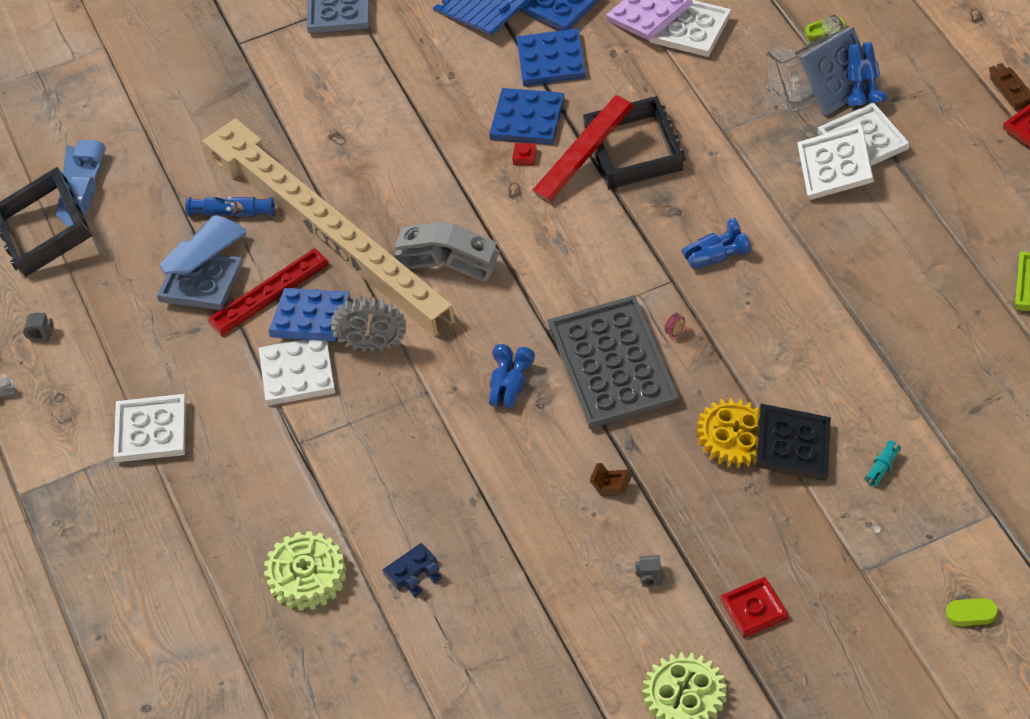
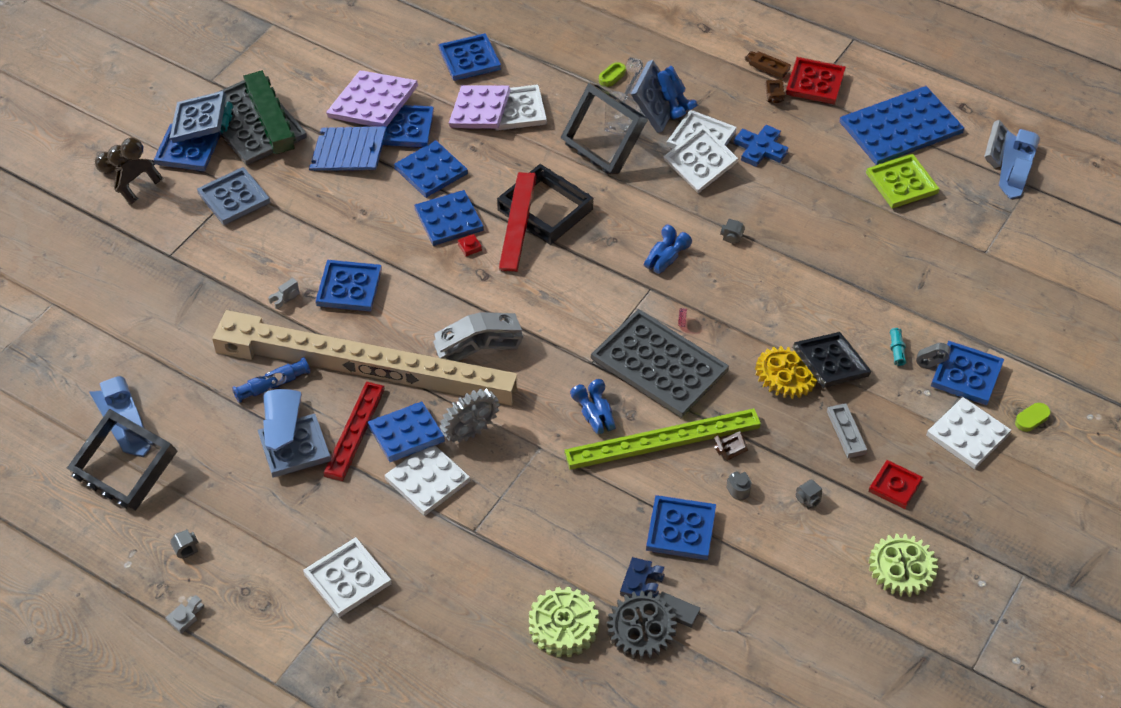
camera: 40 degrees left, 0 degrees up
(310, 125) = (286, 292): none -> light grey plate
(374, 144) = (348, 285): none -> blue plate
(374, 612) = (660, 620): none -> dark grey gear
(423, 616) = (685, 612): none -> dark grey tile
(493, 538) = (681, 527): none -> blue plate
(551, 441) = (661, 439): none -> lime plate
(586, 526) = (739, 485): none -> dark grey plate
(747, 525) = (846, 430): none -> light grey plate
(778, 87) = (629, 140): none -> black window
(806, 256) = (732, 231): none -> dark grey plate
(883, 593) = (968, 433): none -> white plate
(908, 490) = (934, 356): none -> dark grey beam
(924, 175) = (761, 145): none -> blue plate
(937, 528) = (968, 373): none -> blue plate
(990, 120) = (775, 91): none -> reddish brown bracket

